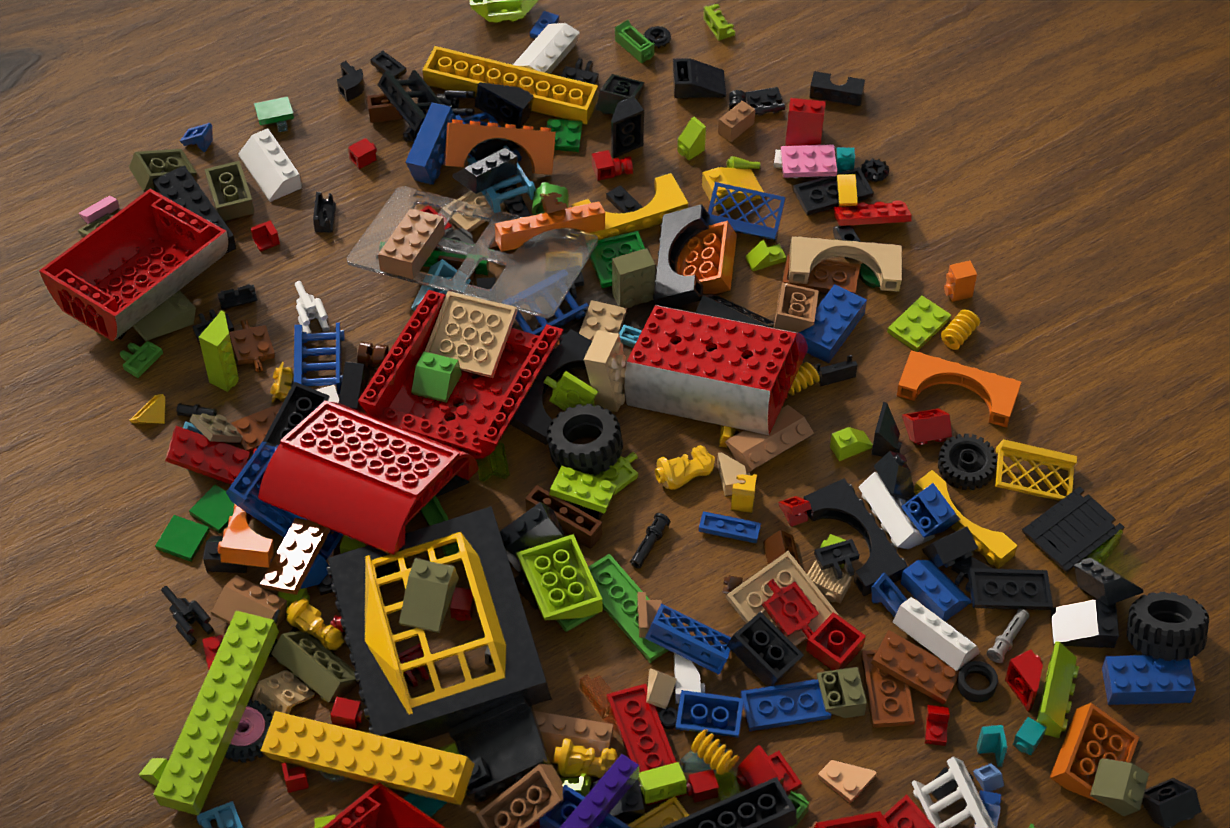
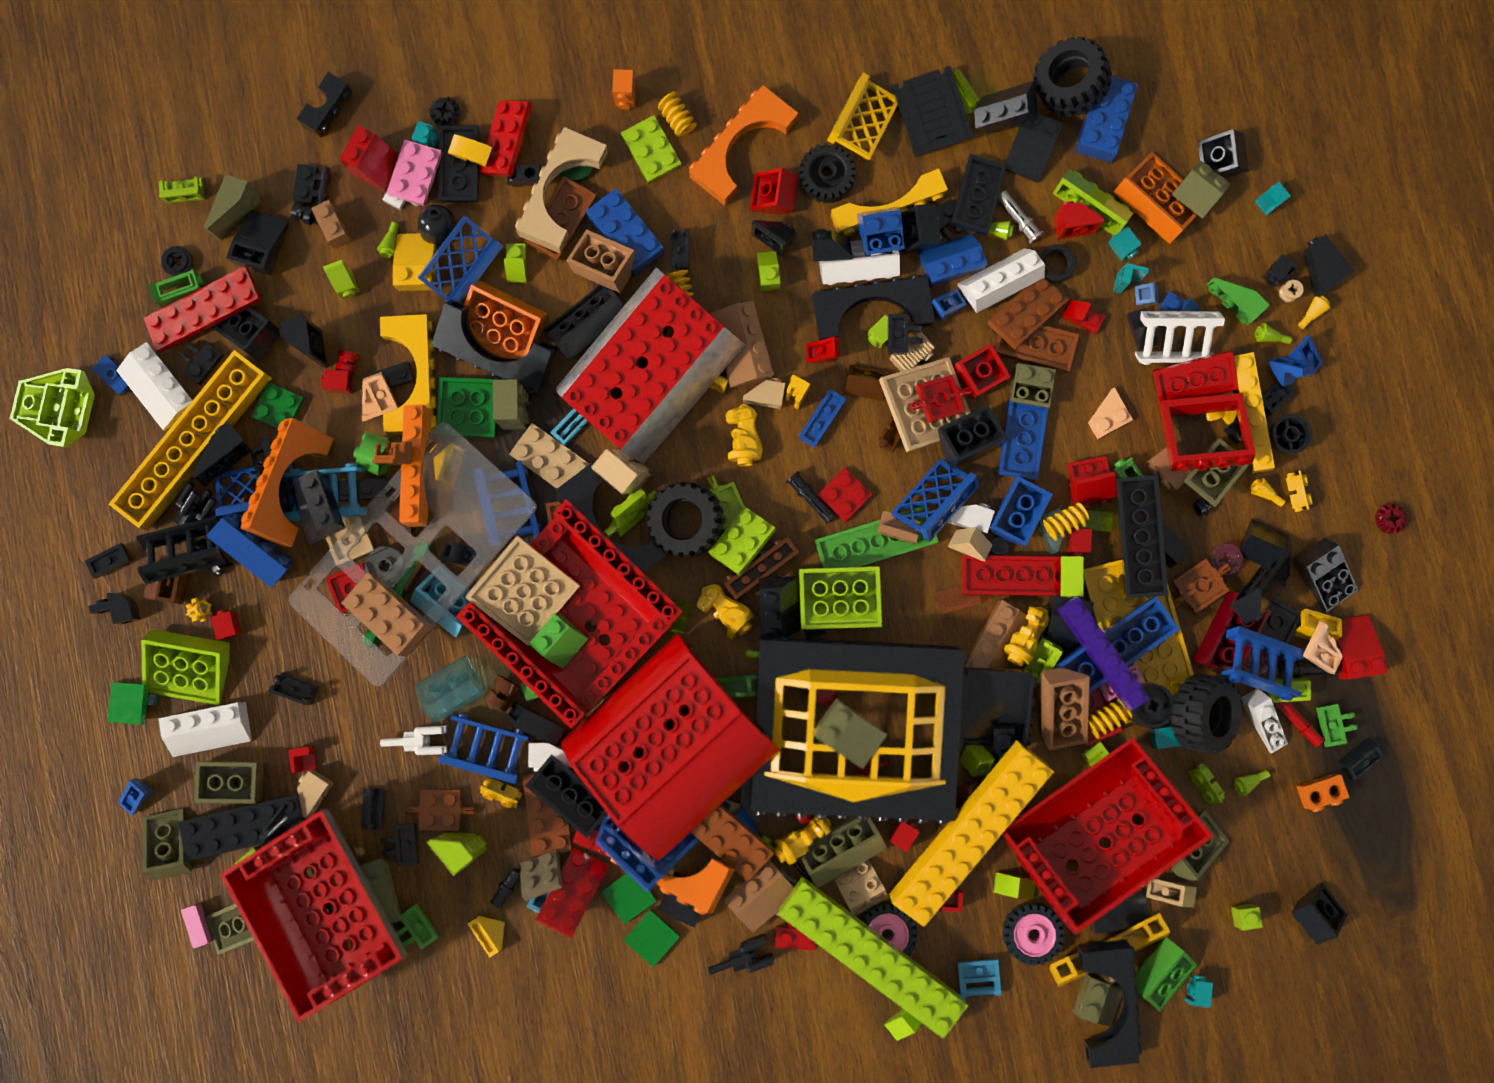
camera: 70 degrees left, 30 degrees up
(241, 251) = (312, 791): none -> tan slope
(318, 136) = (184, 666): none -> lime slope
(361, 318) = (449, 689): none -> clear light blue slope
(364, 130) = (193, 611): none -> yellow gear
(512, 503) = (732, 614): none -> yellow animal
(601, 191) = (376, 397): none -> light nougat wing
(624, 62) = (202, 309): none -> plate
(664, 569) = (844, 495): none -> red plate
(718, 51) = (231, 206): none -> olive slope
(773, 184) = (435, 223): none -> black cylinder
(988, 624) = (1001, 229): none -> lime cone

